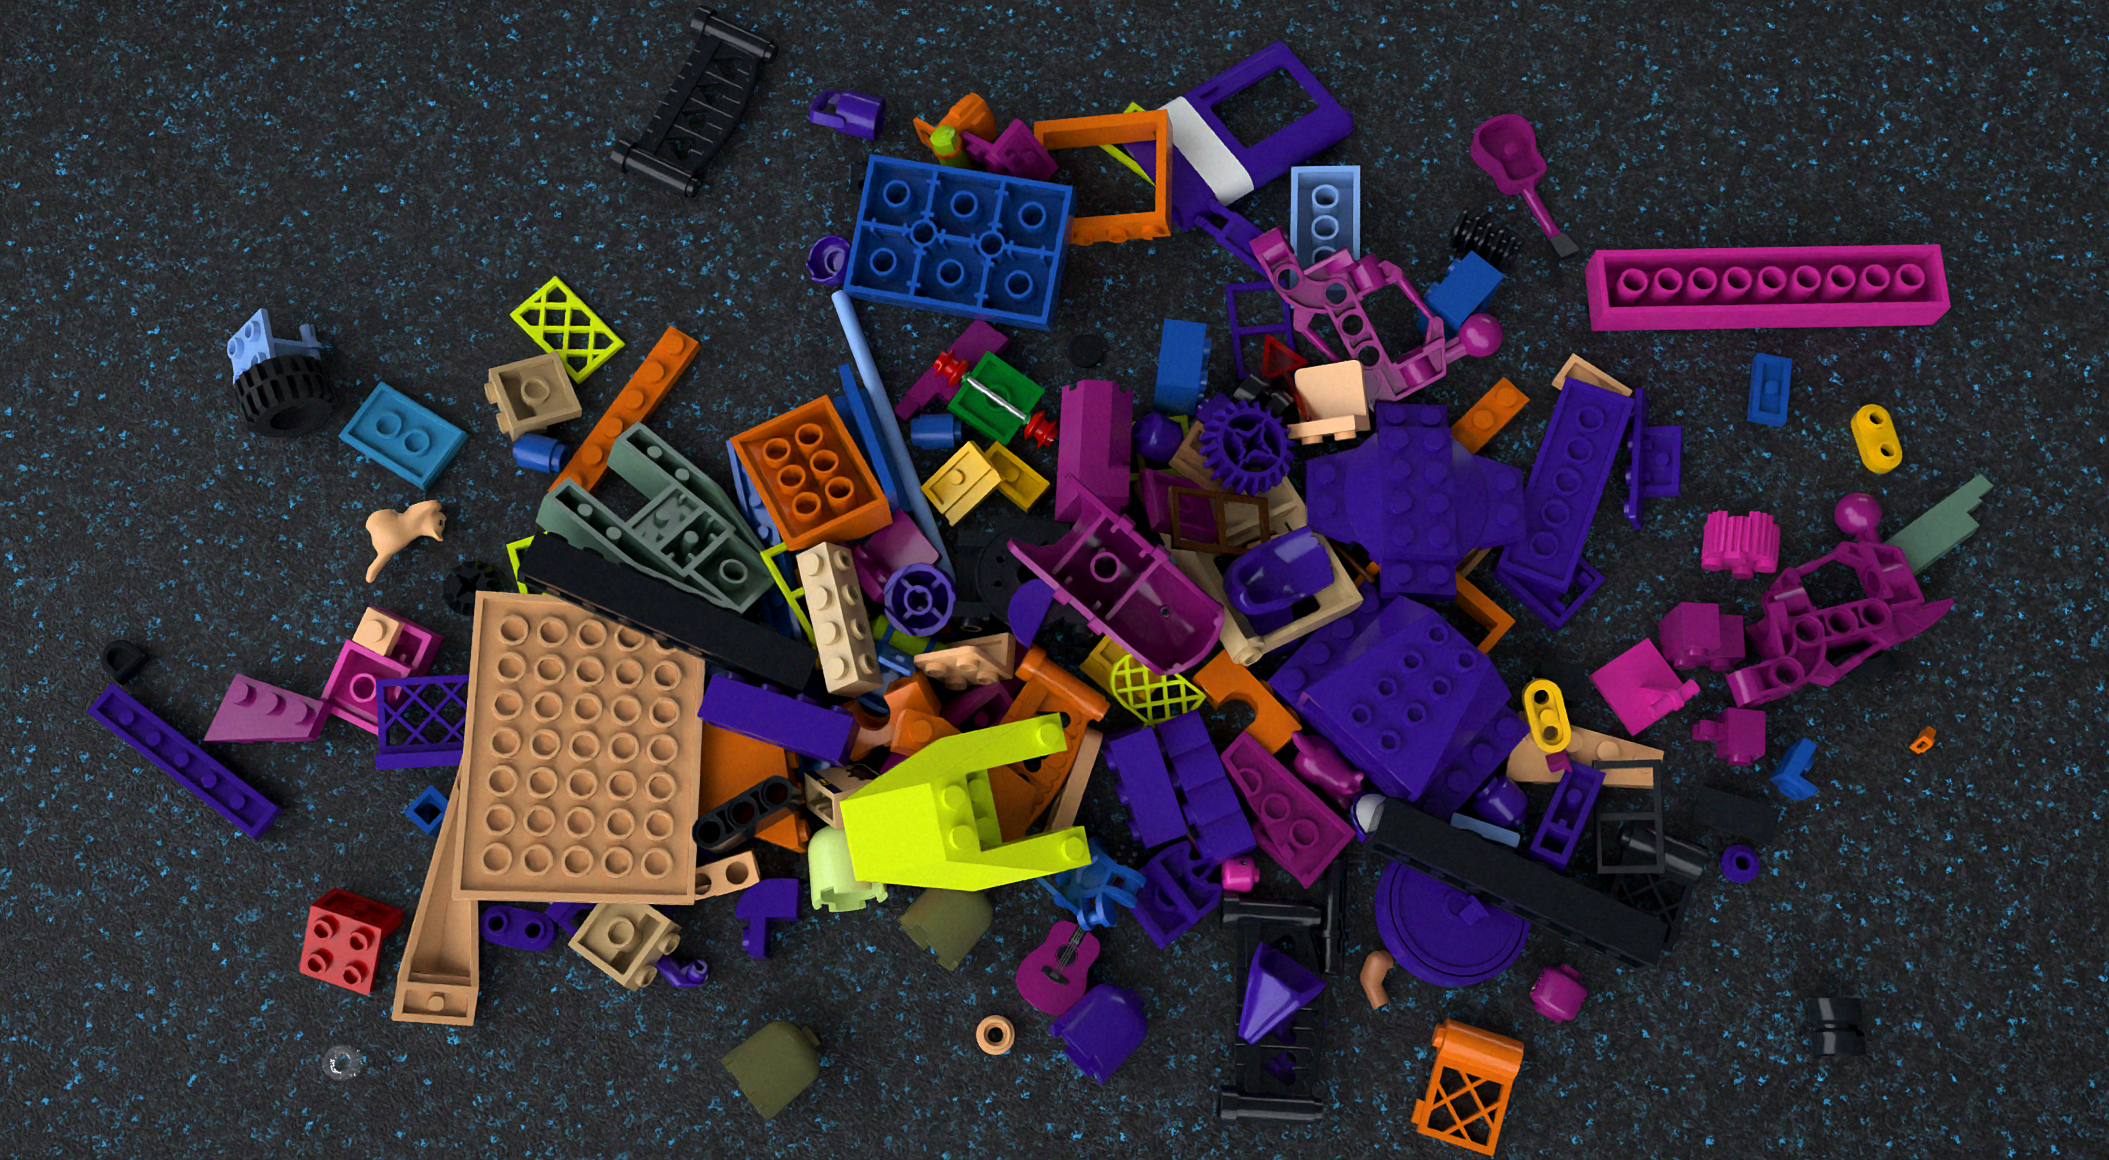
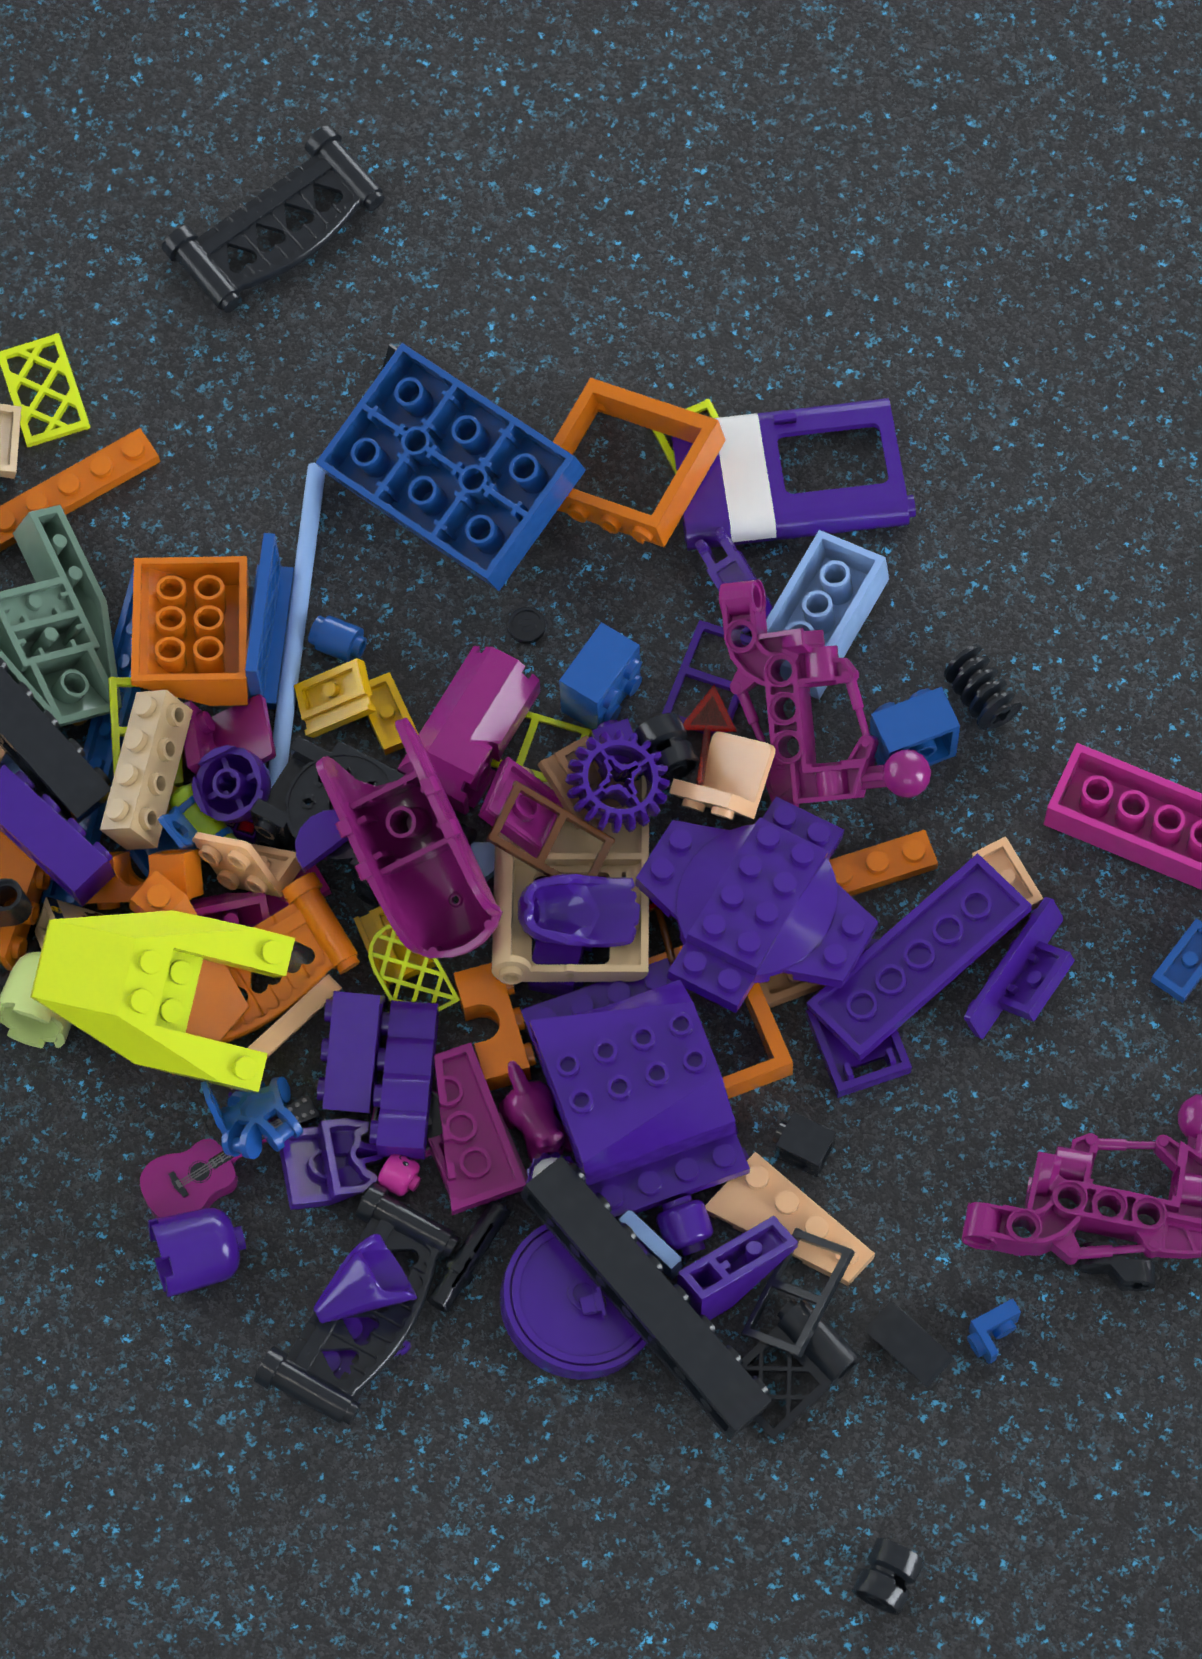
camera: 30 degrees right, 5 degrees down
(829, 260) = (320, 428): dark purple hair -> none
(856, 113) = (420, 295): dark purple piece -> none
(945, 141) = (510, 362): orange piece -> none
(948, 922) = (108, 1088): olive cylinder -> none
(970, 344) = (389, 588): magenta piece -> none
(989, 1023) = (96, 1203): light nougat plate -> none
(995, 398) = (408, 630): green plate -> none
(1012, 154) = (545, 404): magenta bracket -> none
(1156, 437) = (542, 734): dark purple head -> none
(1373, 974) = (474, 1326): nougat arm -> none
(1475, 1053) = (532, 1439): orange piece -> none
(1509, 154) = (1059, 610): magenta piece -> none
(1547, 713) = (765, 1159): yellow plate -> none
(1558, 993) = (640, 1422): magenta head -> none
(1559, 761) = (761, 1211): magenta piece -> none
(1642, 687) = (888, 1184): dark pink plate -> none
(1702, 637) = (969, 1163): magenta brick -> none
(1729, 866) = (884, 1402): dark purple plate -> none
(1737, 735) = (953, 1271): magenta brick -> none
(1740, 544) = (1059, 1091): dark pink brick -> none
(1924, 740) = (1143, 1362): orange piece -> none

